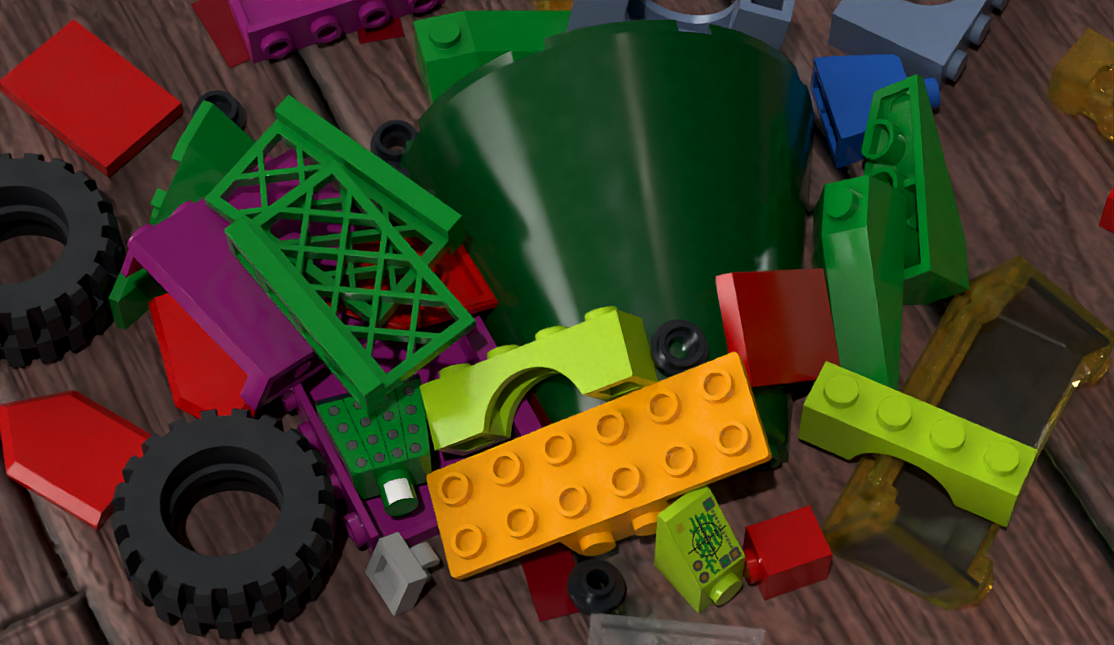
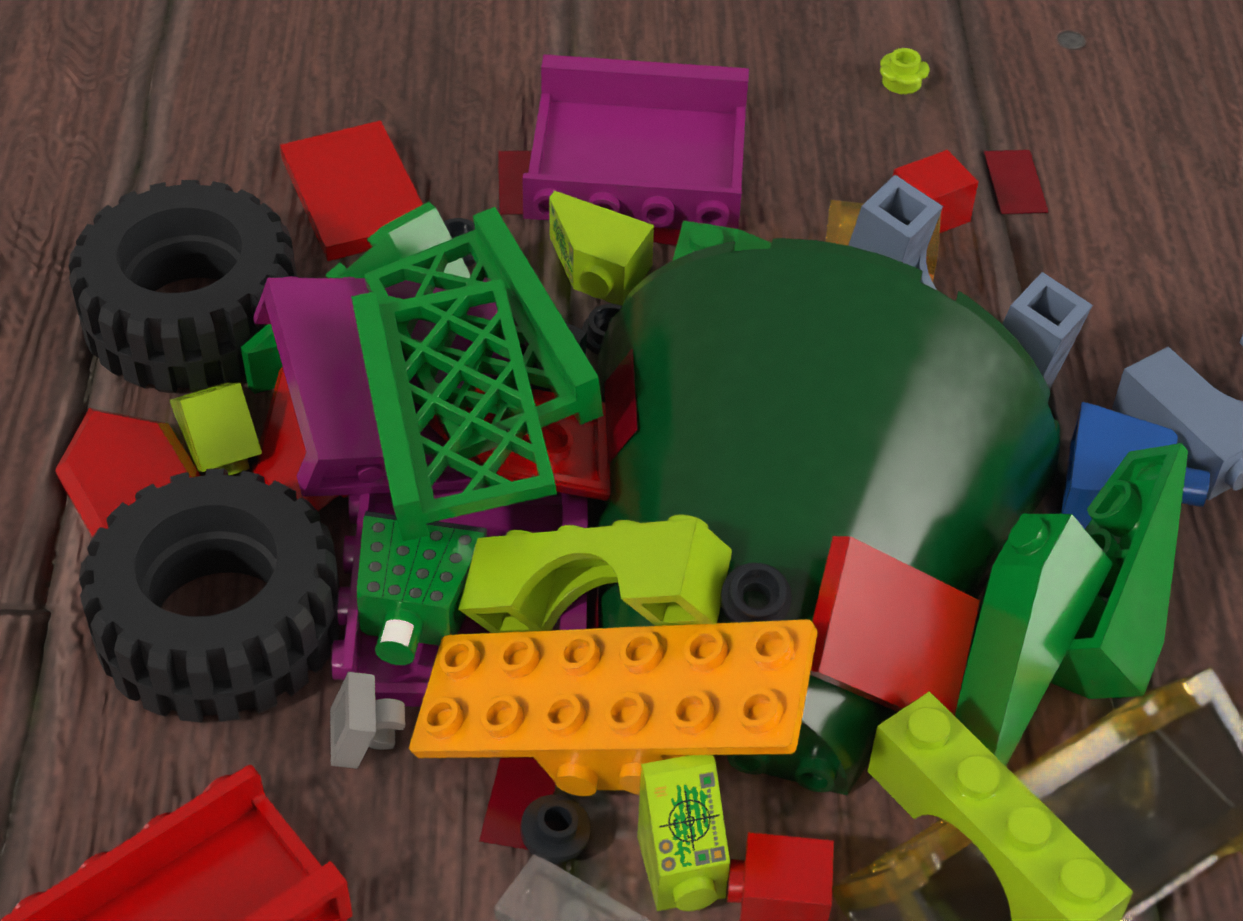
camera: 25 degrees right, 10 degrees down
(124, 375) = (217, 428): none -> lime slope
(342, 70) = (599, 247): none -> lime slope
(480, 236) = (620, 406): none -> dark red sticker

